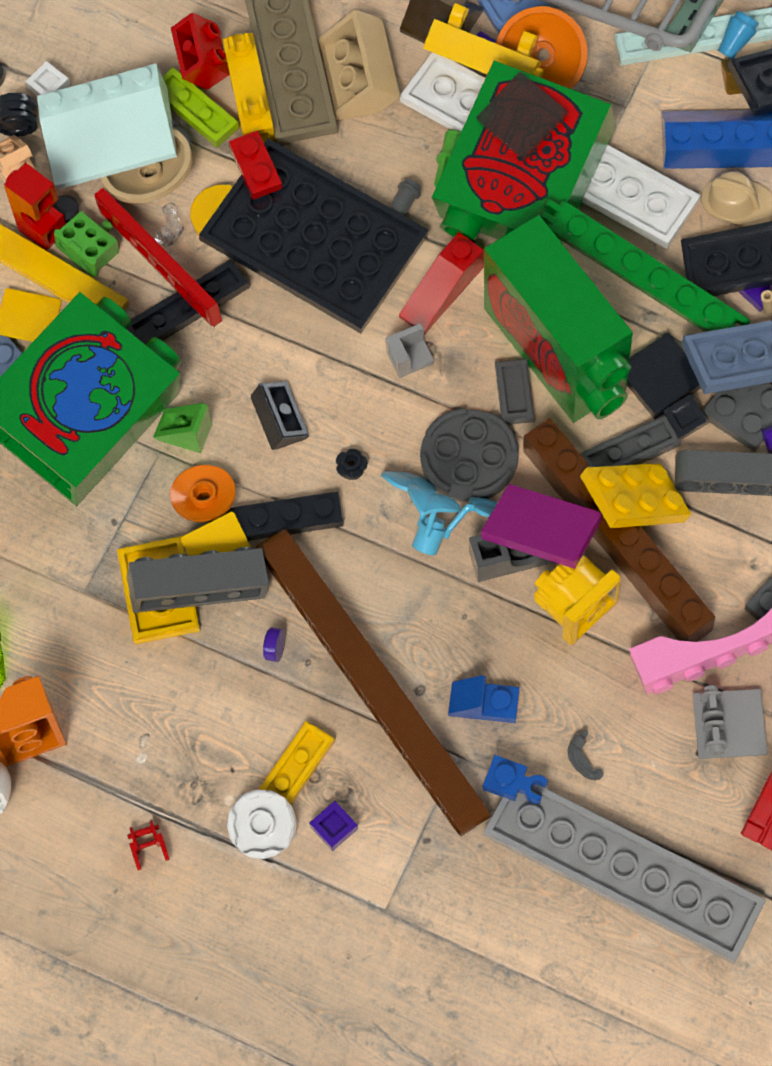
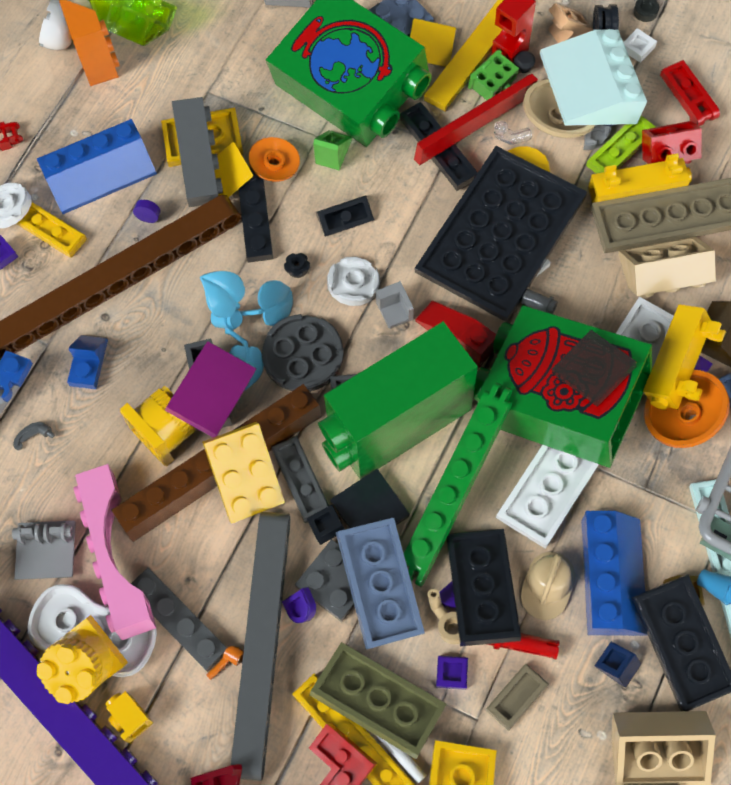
camera: 90 degrees right, 0 degrees up
(121, 32) = (690, 93): none -> red plate
(206, 712) = (96, 166): none -> slope
(255, 165) = (559, 181): red plate -> none
(373, 410) = (347, 286): none -> white tile

